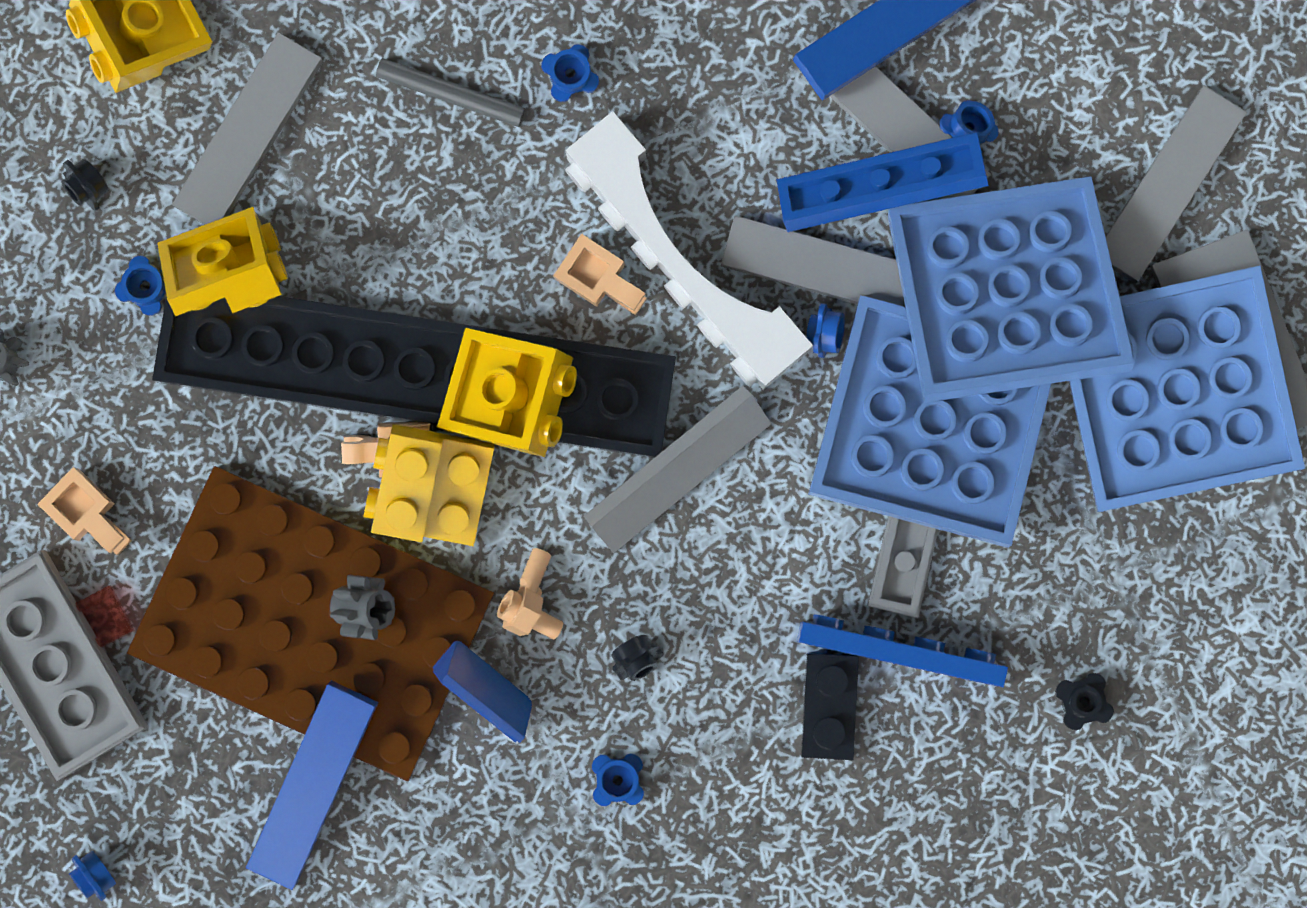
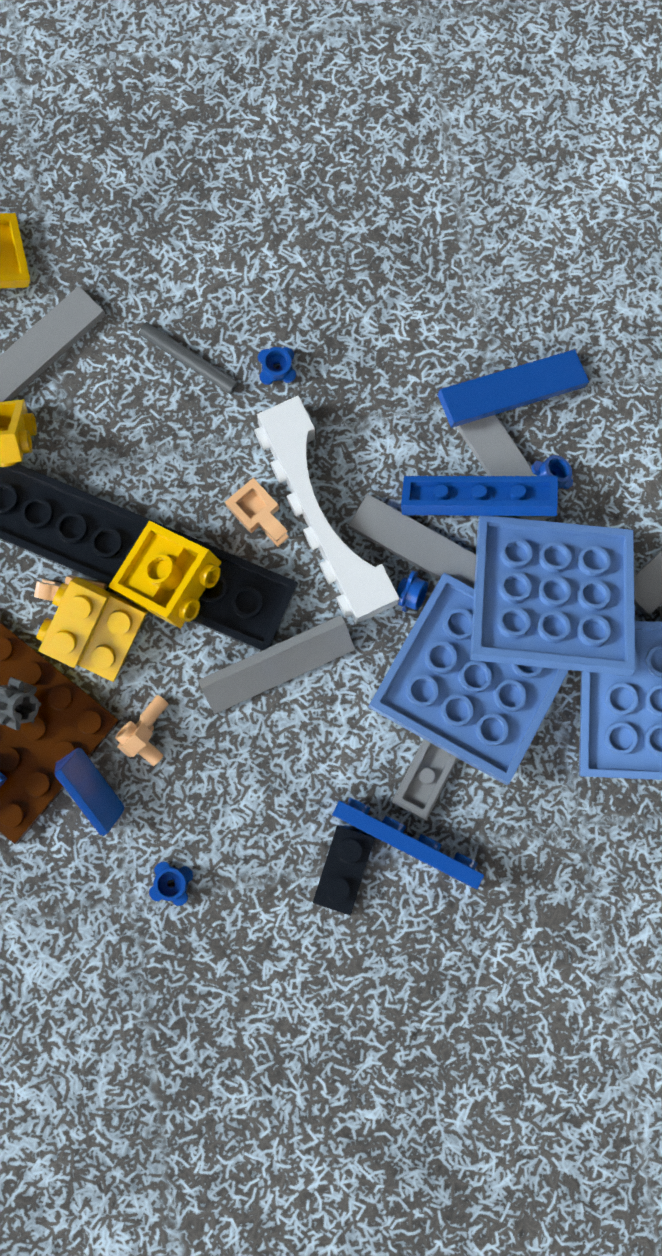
camera: 10 degrees right, 5 degrees down
(636, 658) = (209, 795): black plate -> none
(1070, 696) = (525, 910): black plate -> none

